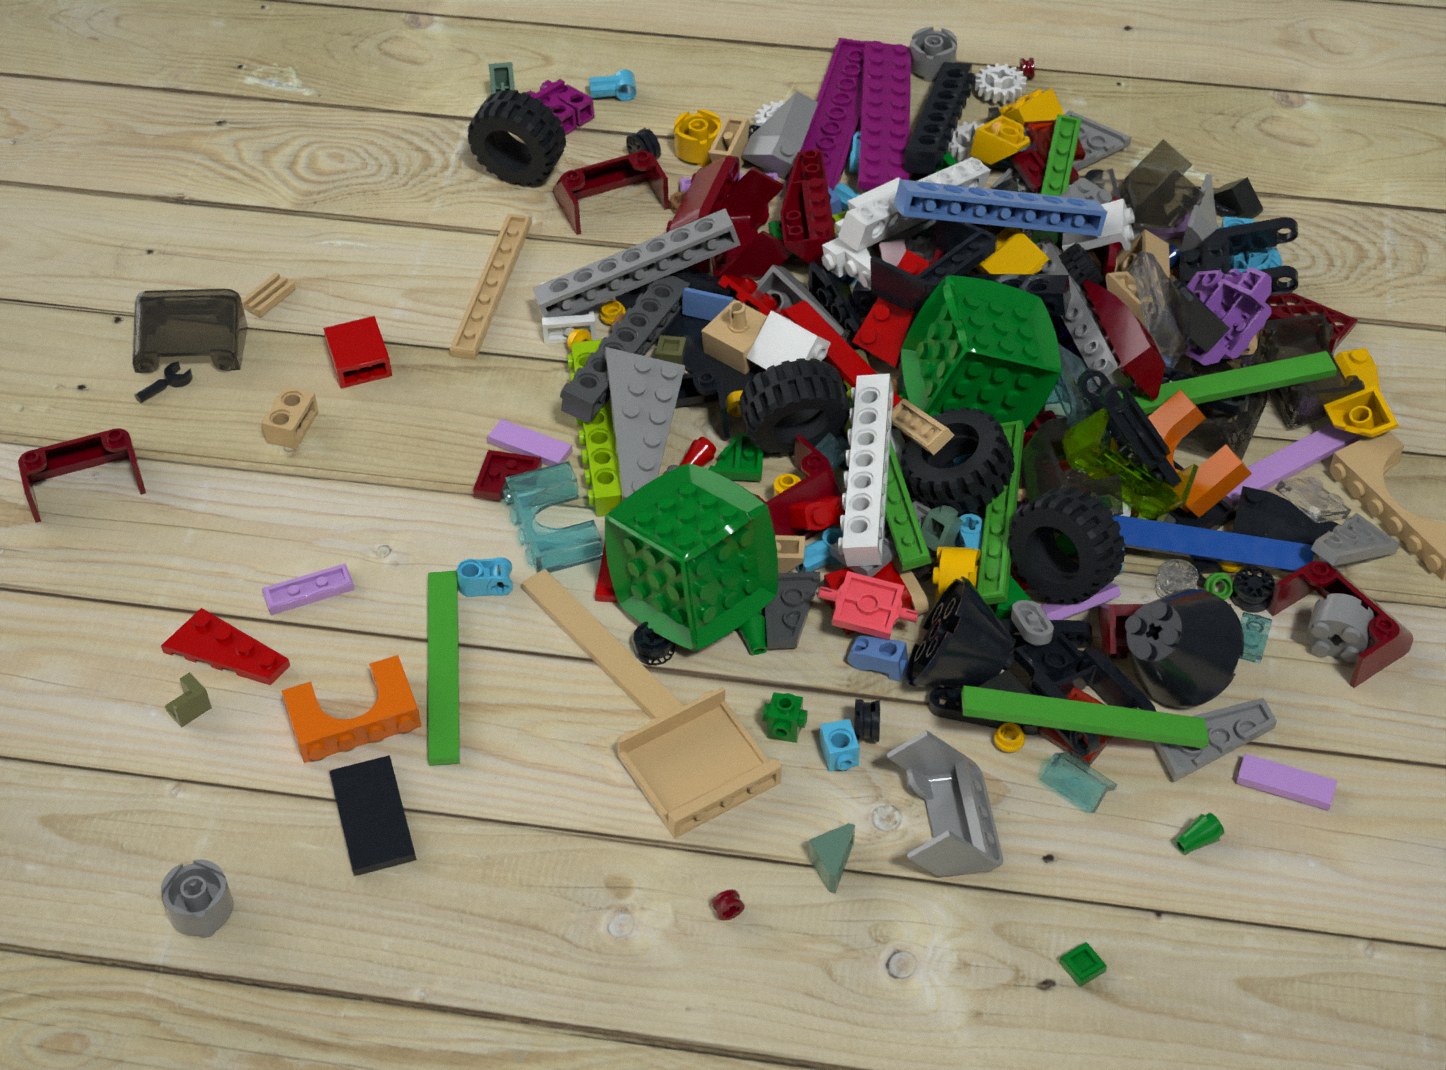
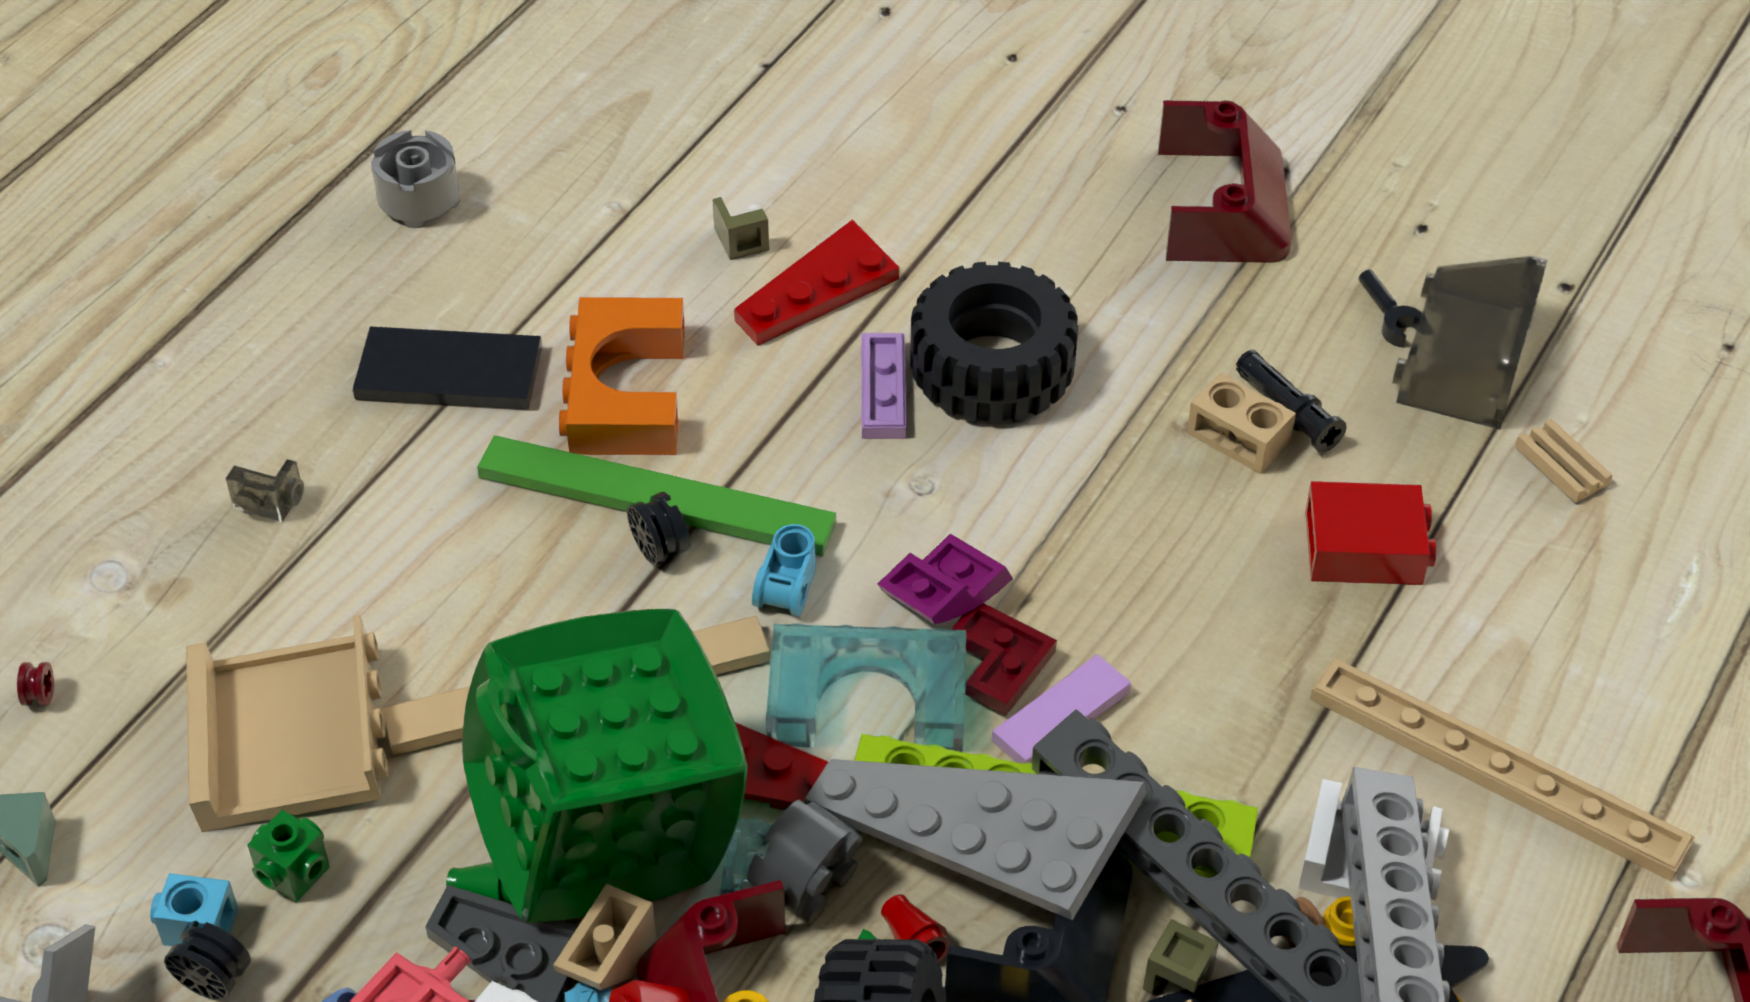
camera: 110 degrees right, 0 degrees up
(261, 403) = (1309, 414): none -> black pin
(273, 556) = (986, 380): none -> black tyre
(464, 506) = (946, 581): none -> magenta slope
(479, 641) = (658, 528): none -> black wheel
(525, 847) = (266, 494): none -> clear smoke bracket
(578, 335) = (1283, 843): yellow plate -> none

